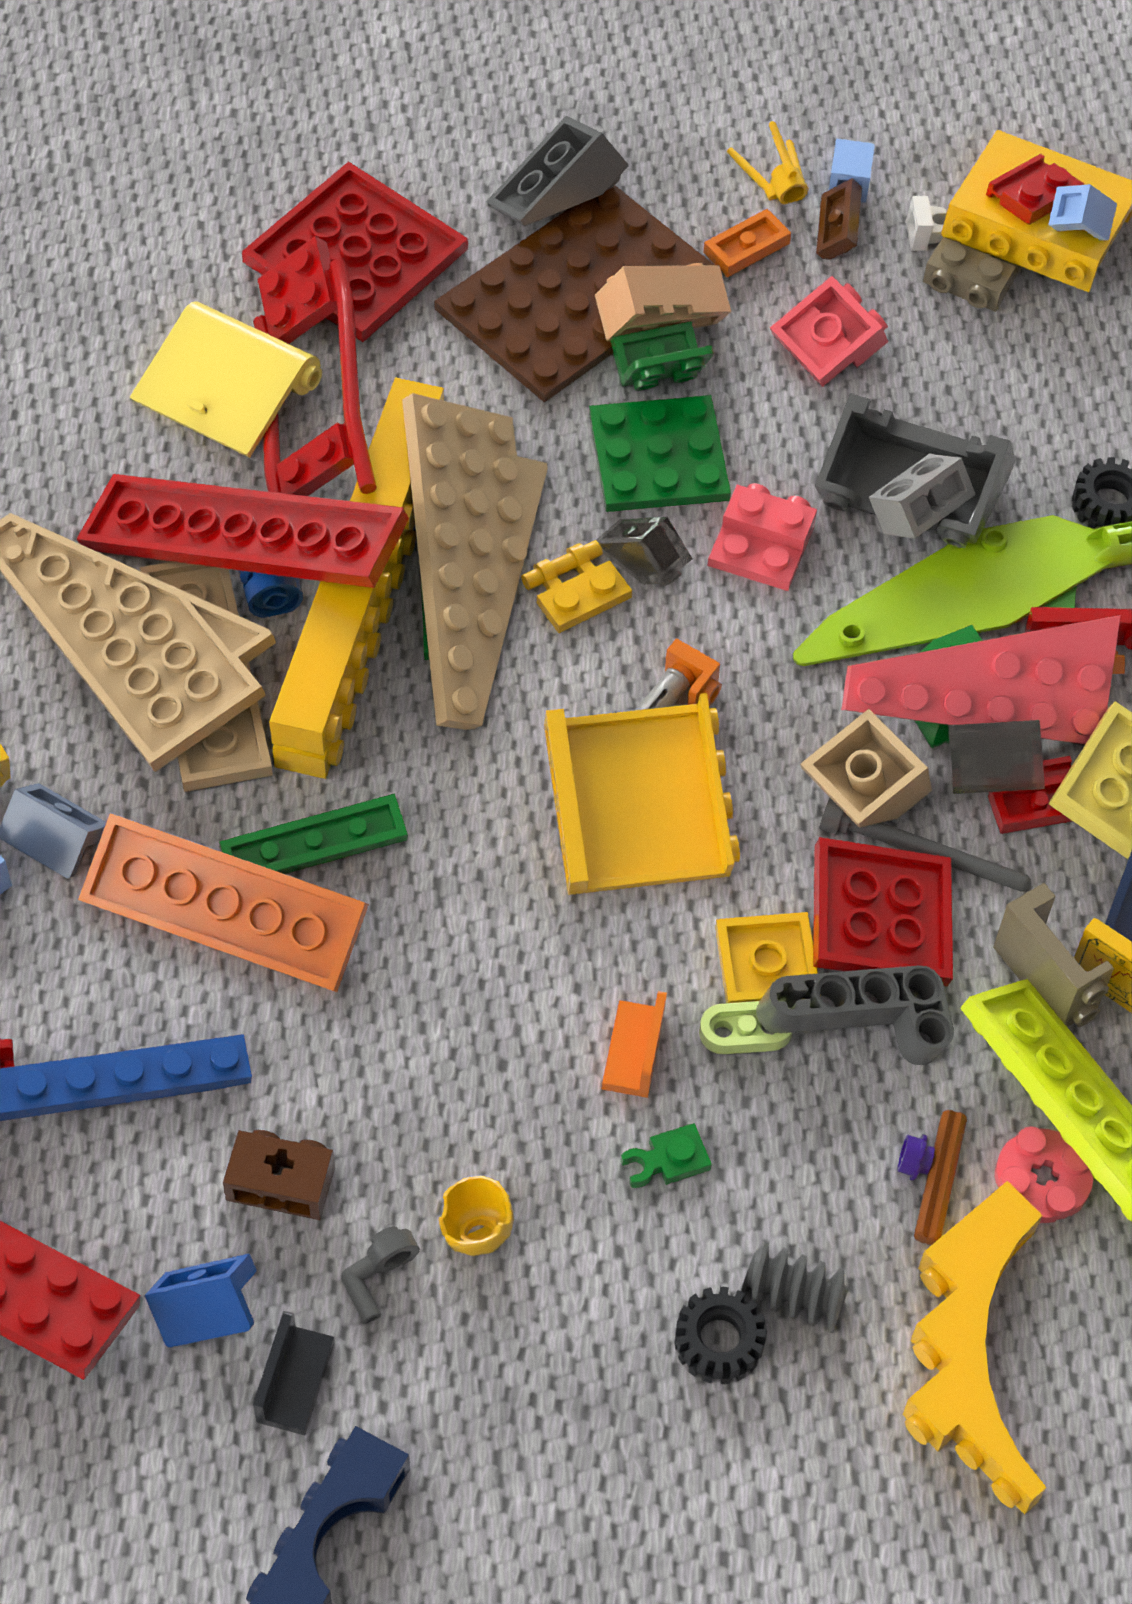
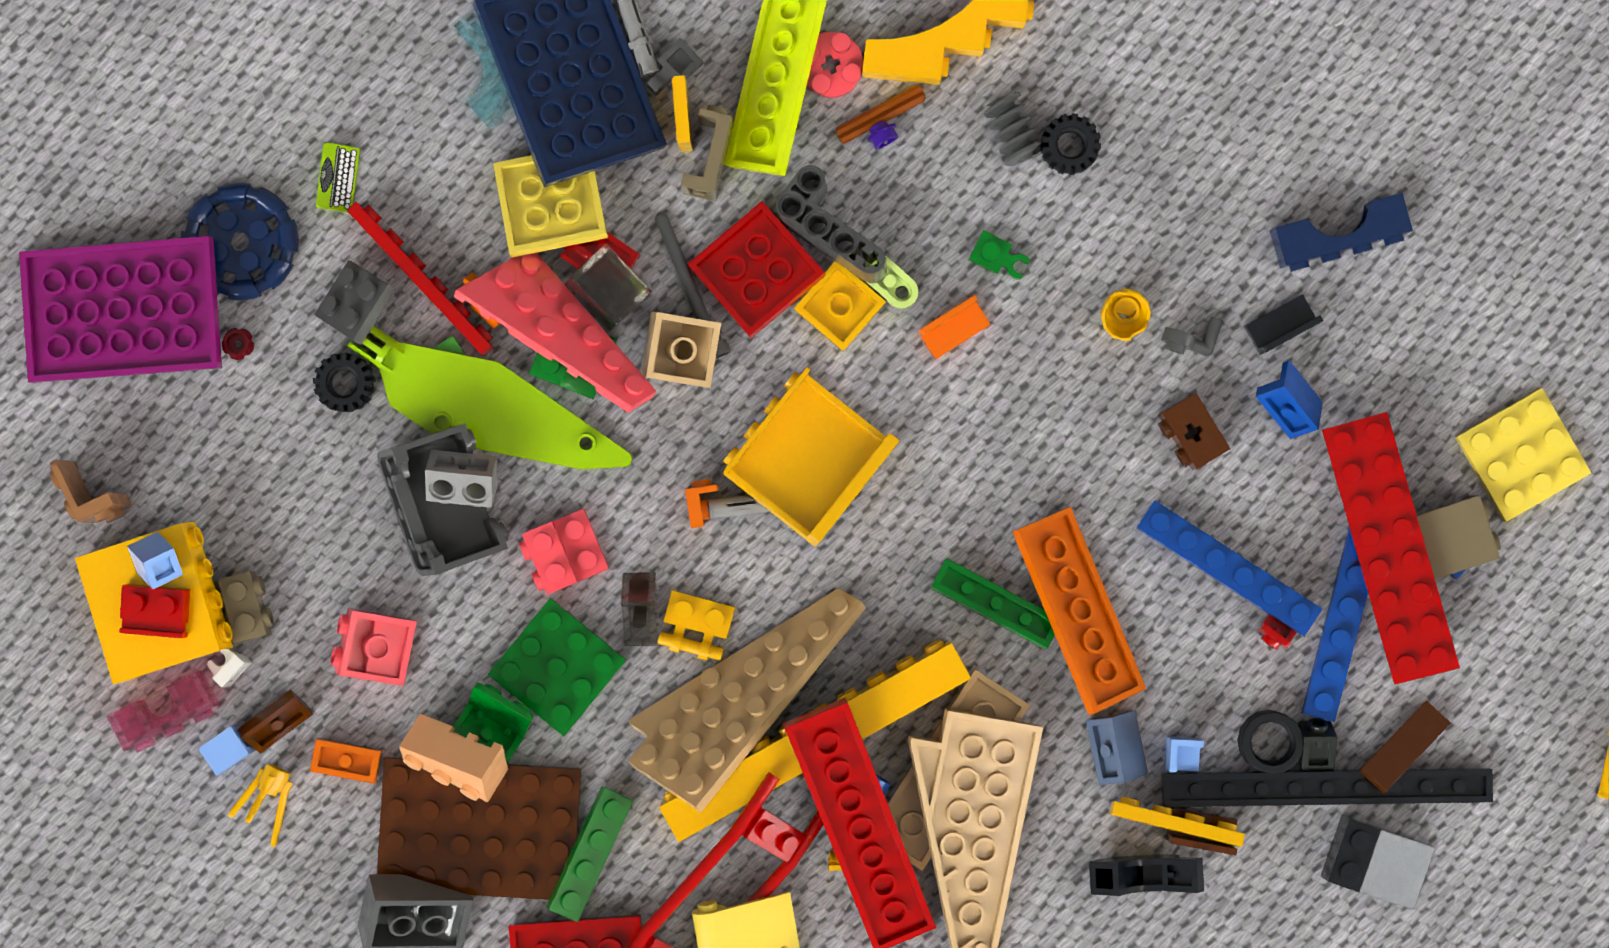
camera: 130 degrees left, 30 degrees up
(461, 339) = (589, 854): none -> green plate
(937, 132) = (138, 726): none -> clear pink arch

